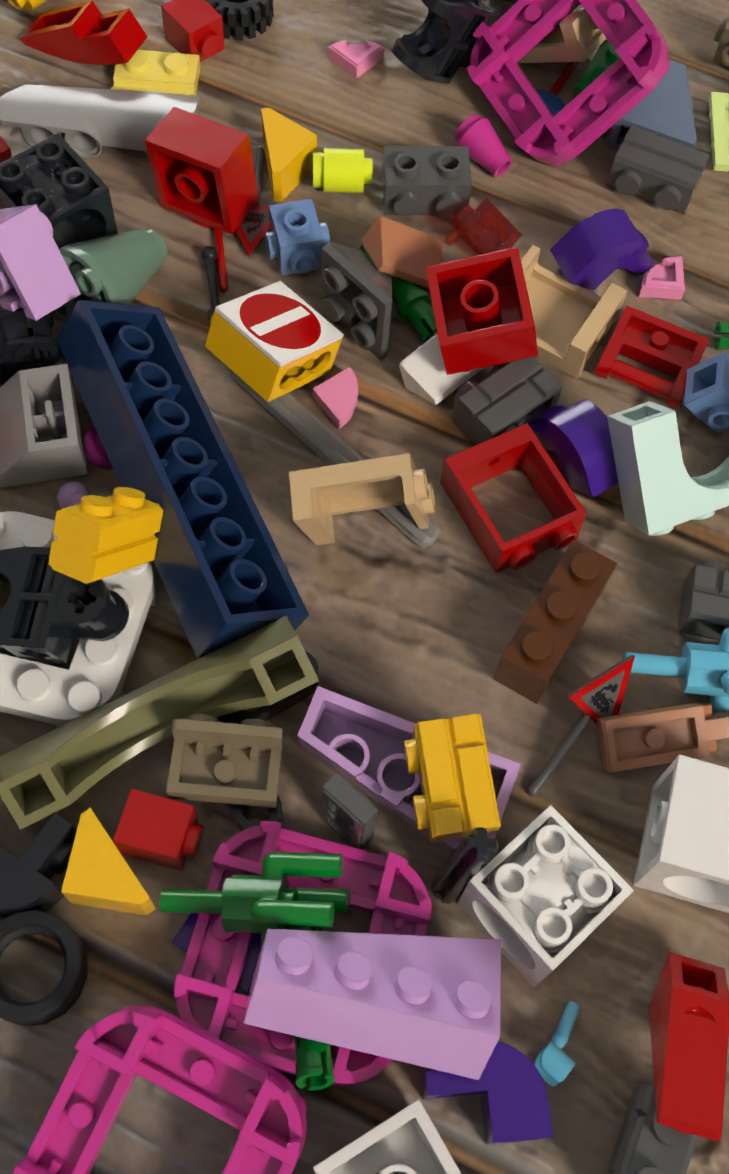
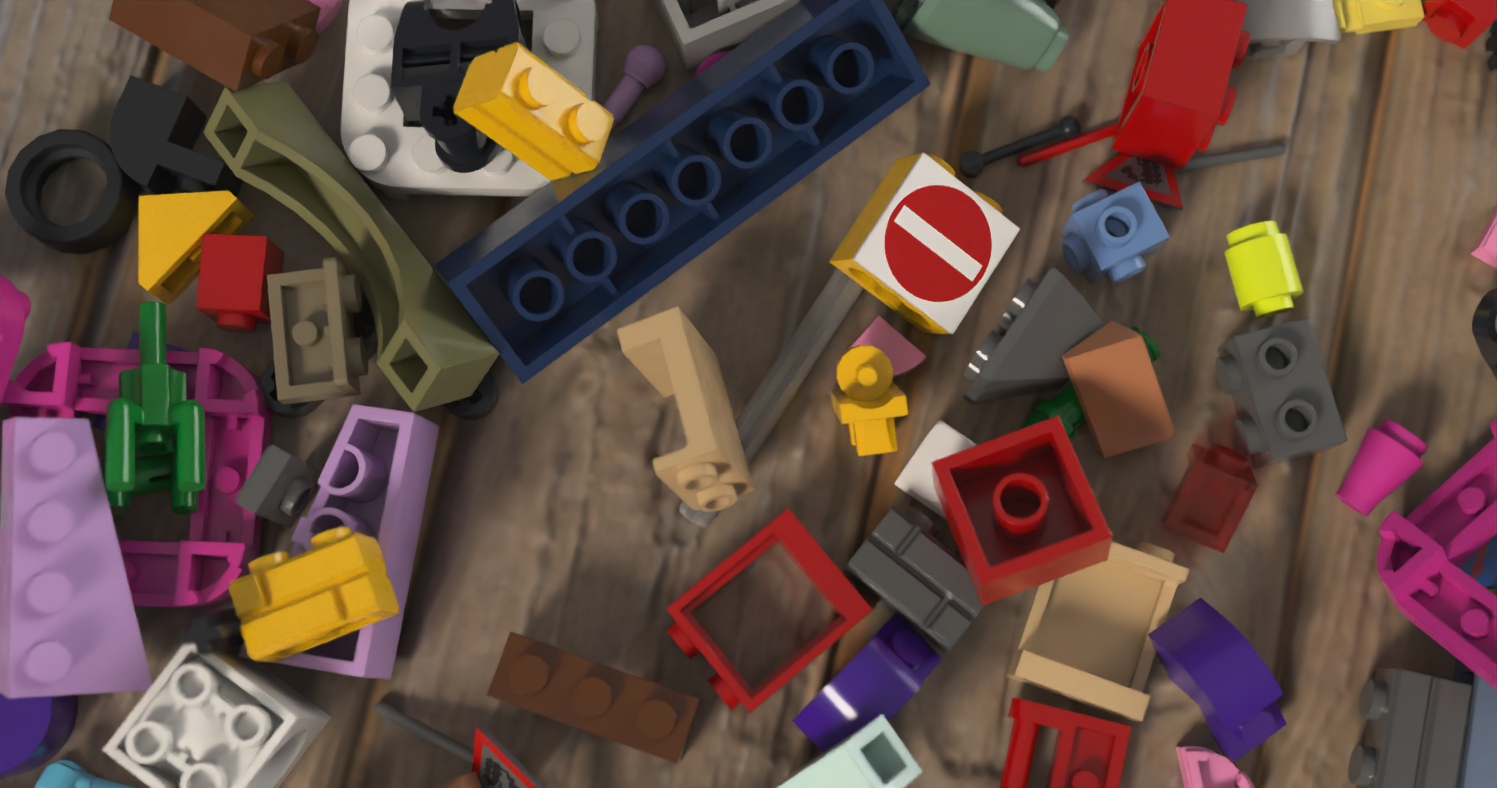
camera: 85 degrees right, 15 degrees up
(287, 152) = (1267, 184): yellow slope -> none
(380, 397) = (868, 399): none -> yellow hips

